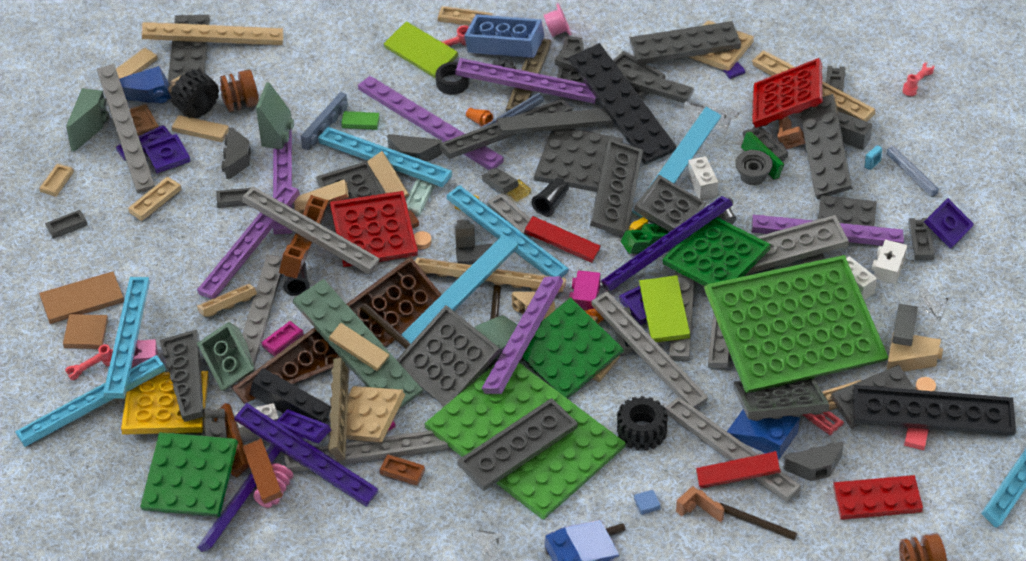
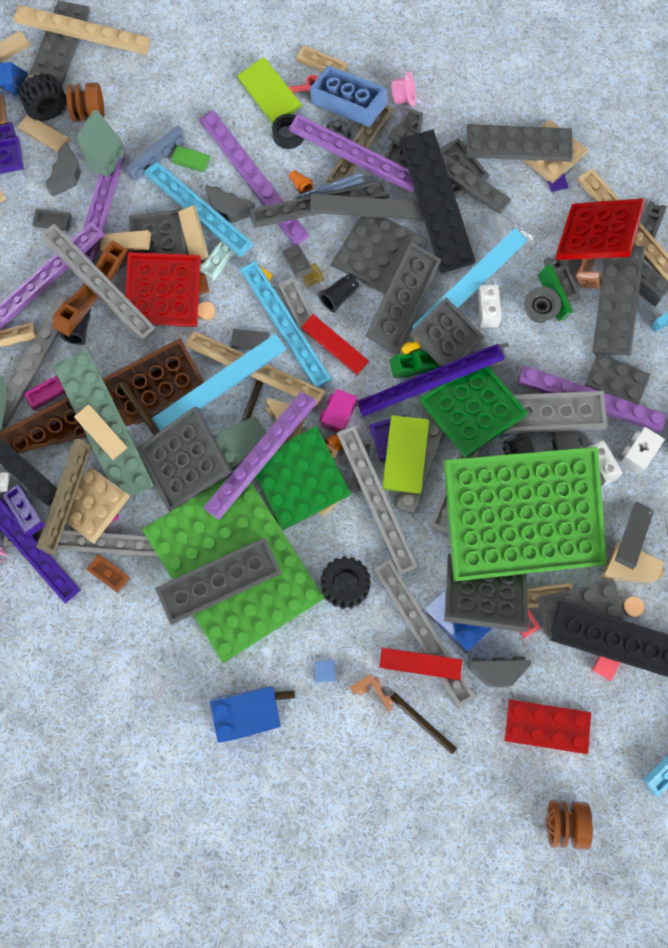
camera: 15 degrees right, 25 degrees up
(464, 233) = (244, 315): dark grey slope -> none

